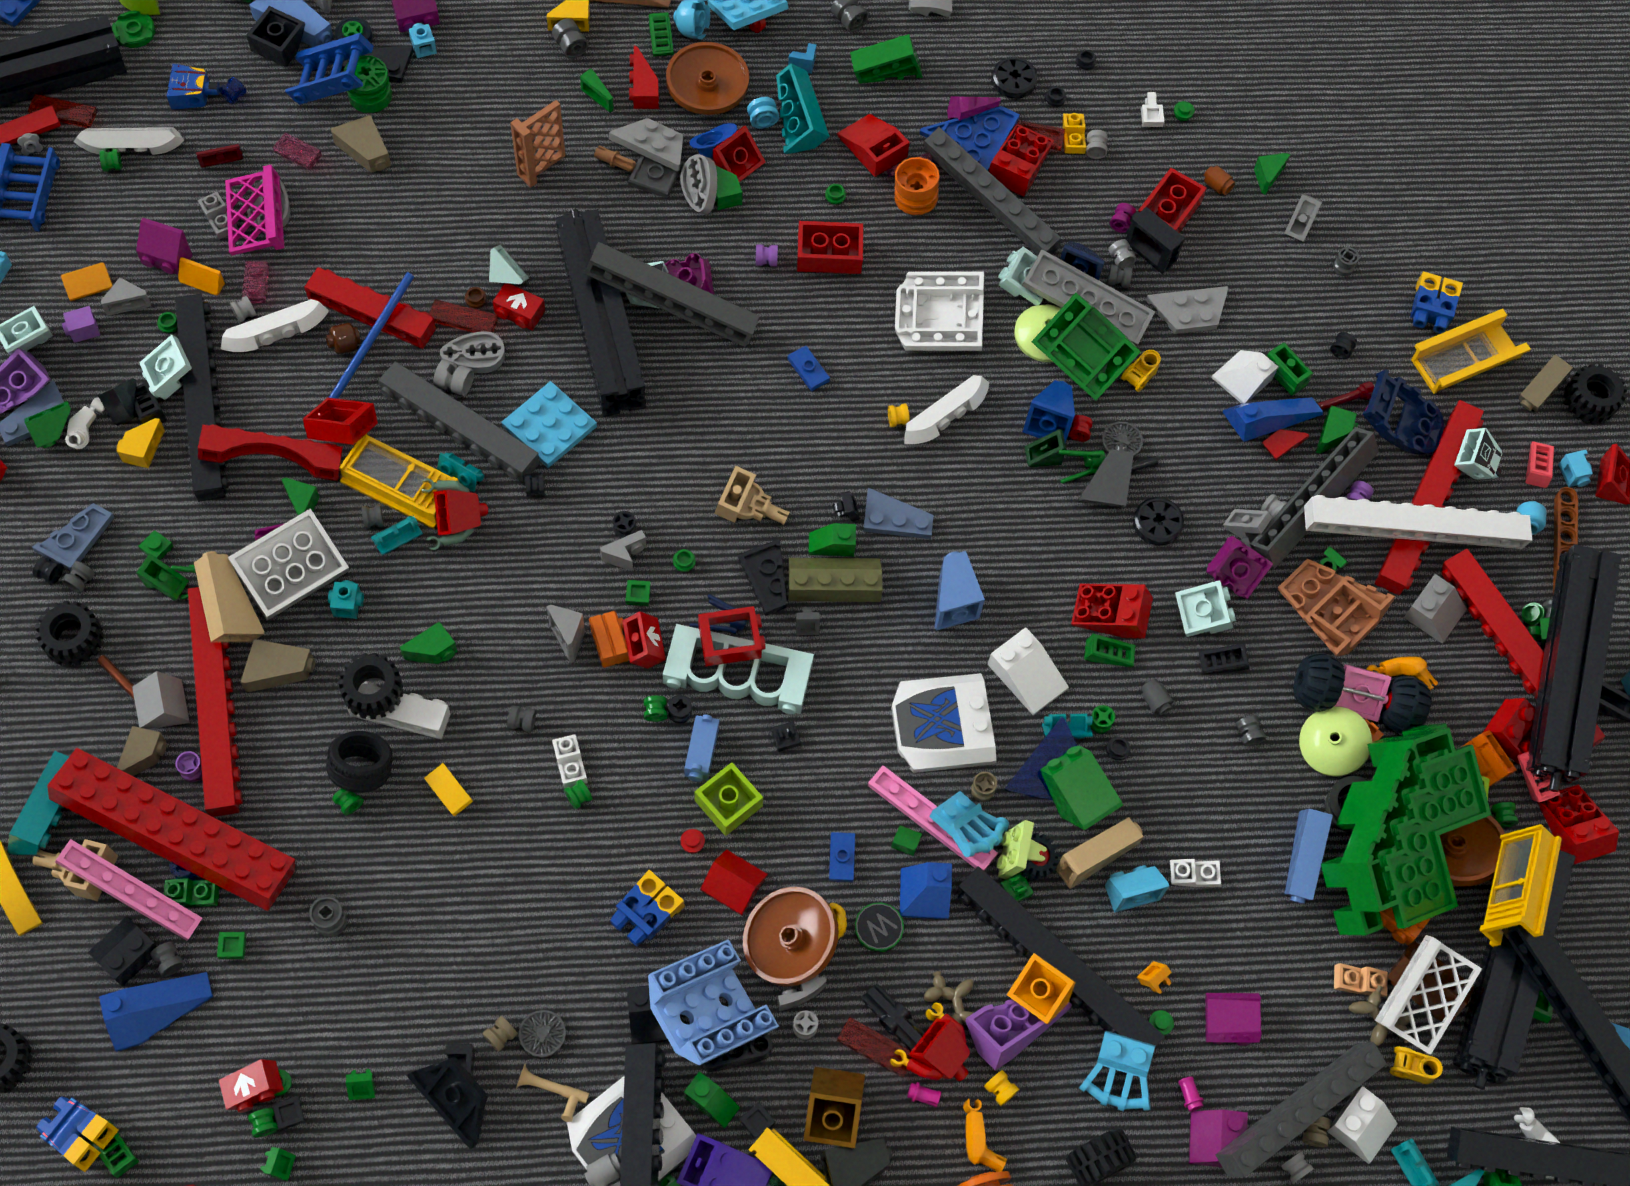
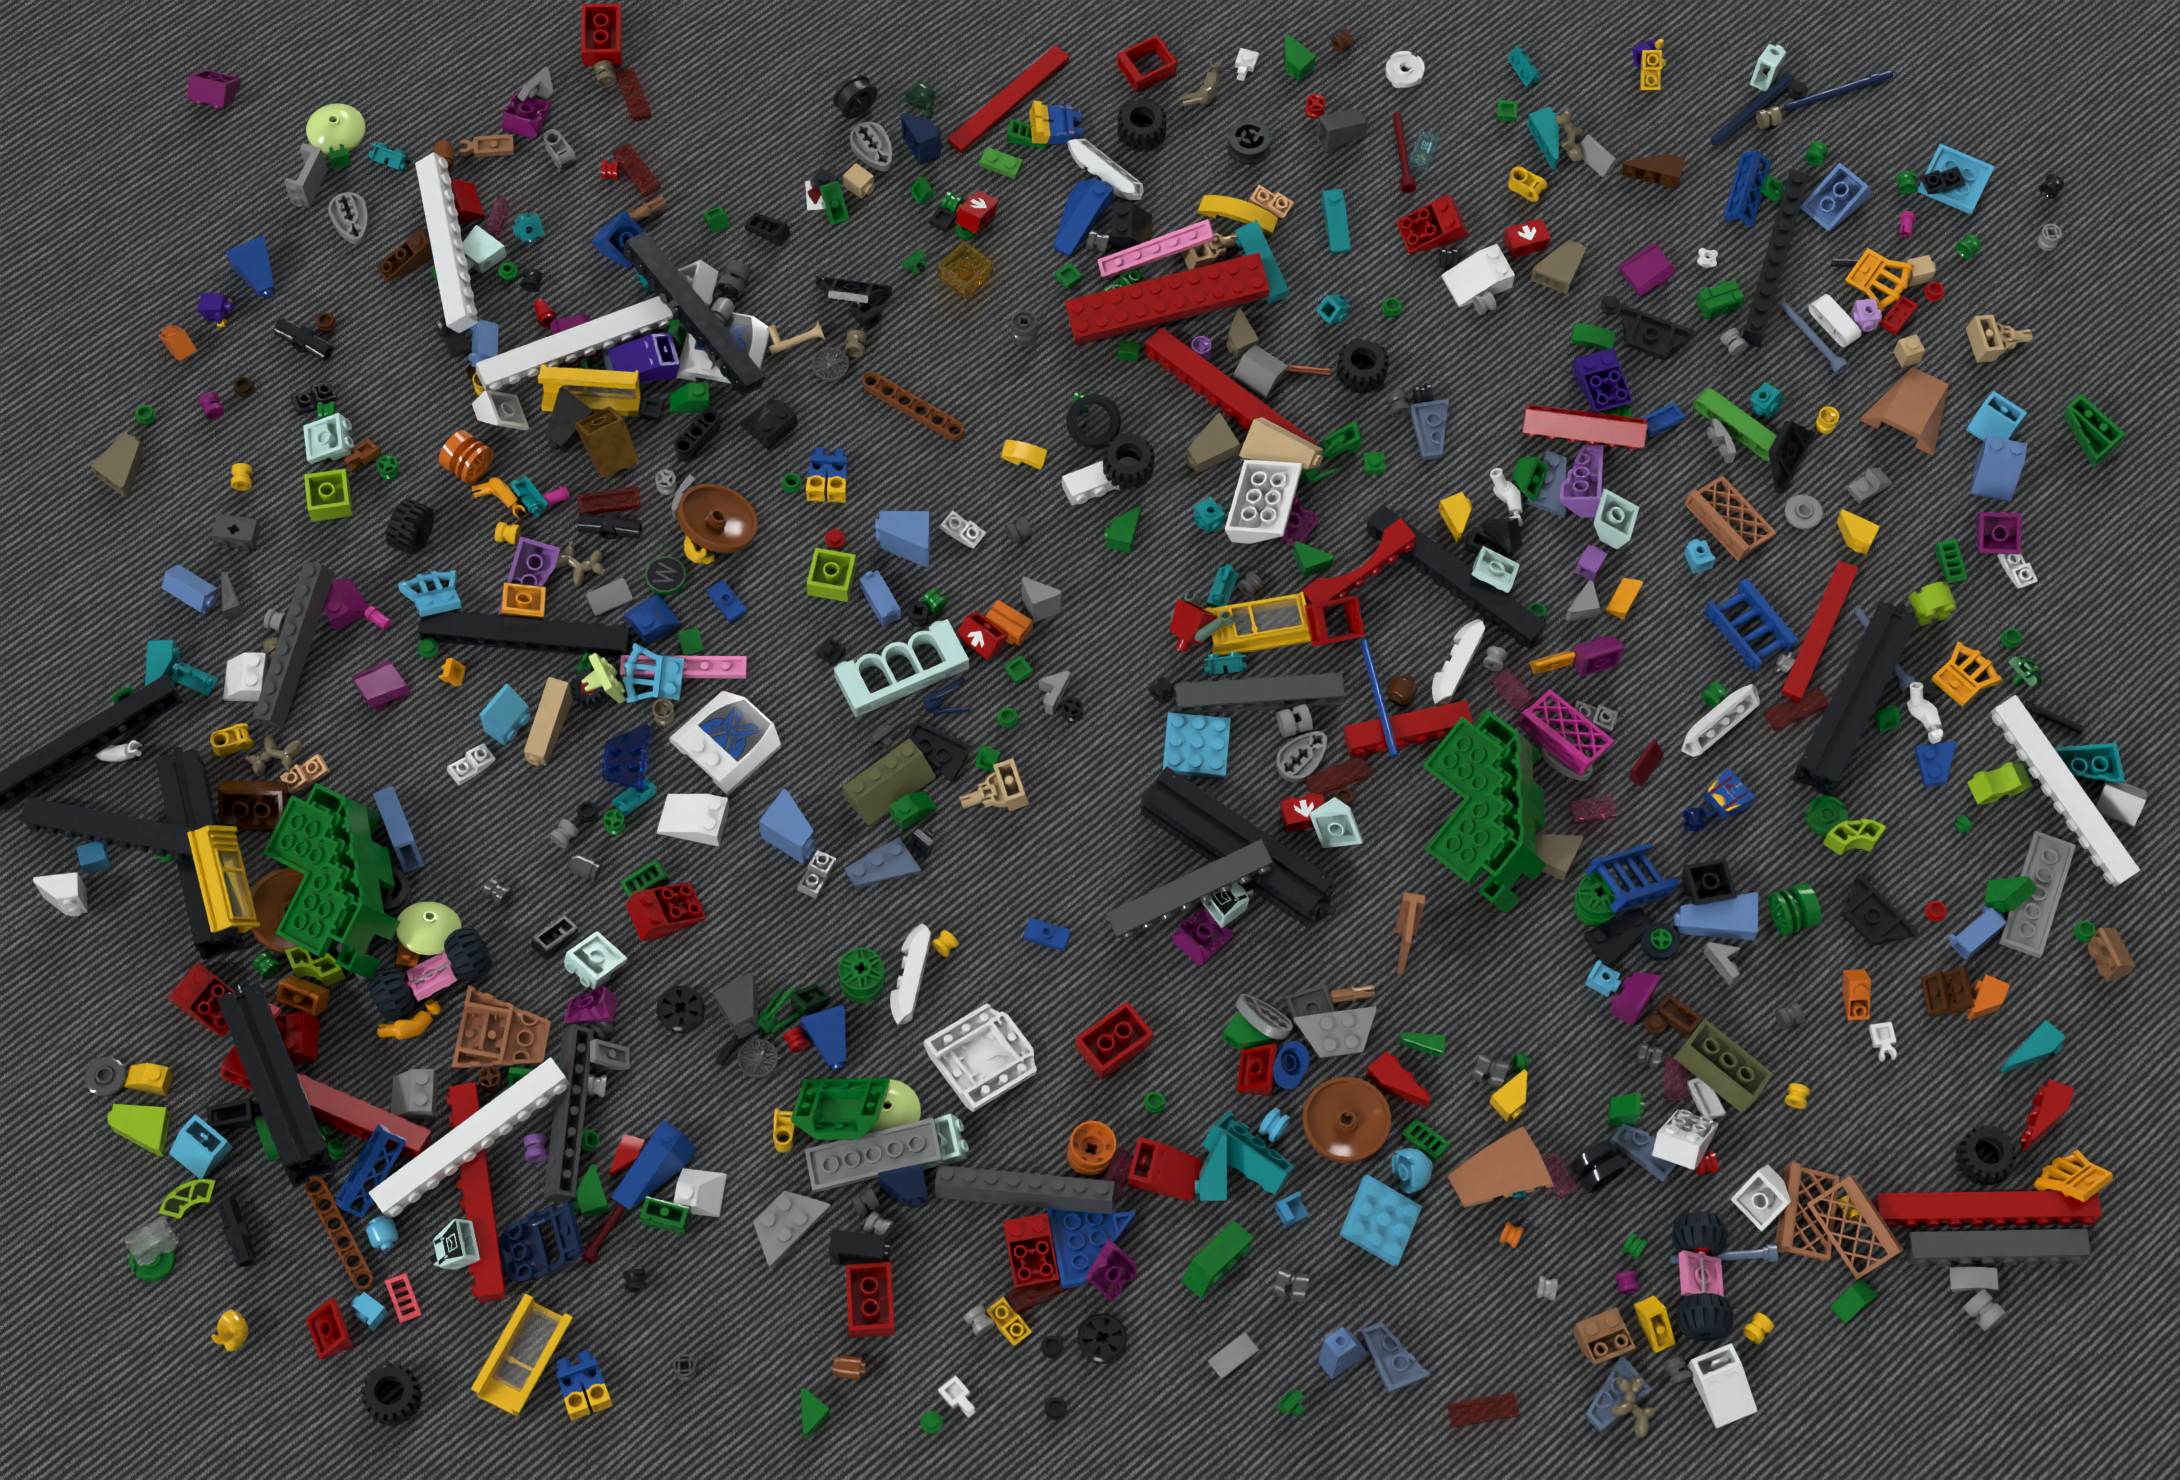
camera: 145 degrees right, 0 degrees up
(33, 707) = (1334, 309): none -> teal brick
(79, 1039) = (1099, 164): none -> white brick
(169, 1137) = (1001, 163): none -> bright green plate
(252, 822) = (1128, 351): none -> green slope
(324, 1025) = (965, 270): none -> clear yellow brick
(356, 195) = (1500, 807): none -> green brick
(505, 923) = (915, 403): none -> dark orange beam
(541, 33) = (1520, 1062): none -> green plate
(578, 794) = (936, 510): green wheel -> none
(628, 782) = (905, 534): none -> medium blue slope
(685, 924) = (791, 477): none -> green plate
(694, 990) = (718, 430): light blue slope -> none
(733, 536) = (987, 758): none -> green tile
(733, 881) = (786, 536): red slope -> none
(736, 654) = (935, 656): red window -> none
(766, 255) = (1159, 1000): medium lavender wheel -> none
(838, 108) = (1213, 1174): none -> teal slope
(940, 1049) = (564, 520): red torso -> none
(949, 944) = (609, 597): none -> light grey slope
(951, 1123) = (530, 495): none -> teal hinge
(966, 542) = (816, 874): none -> light grey slope
(990, 433) = (864, 986): none -> green wheel
(1080, 788) = (590, 746): green slope -> none
(1121, 220) = (903, 1262): magenta wheel -> none
(1155, 740) = (563, 833): none -> light grey wheel
(1303, 217) = (750, 1383): light grey slope -> none
(1307, 471) = (589, 1140): none -> green plate
(1365, 573) = (488, 1075): none -> reddish brown wheel
(1407, 987) = (264, 788): white fence -> none
(1518, 565) = (362, 1169): none -> blue fence
(1545, 383) = (439, 1373): dark tan slope -> none

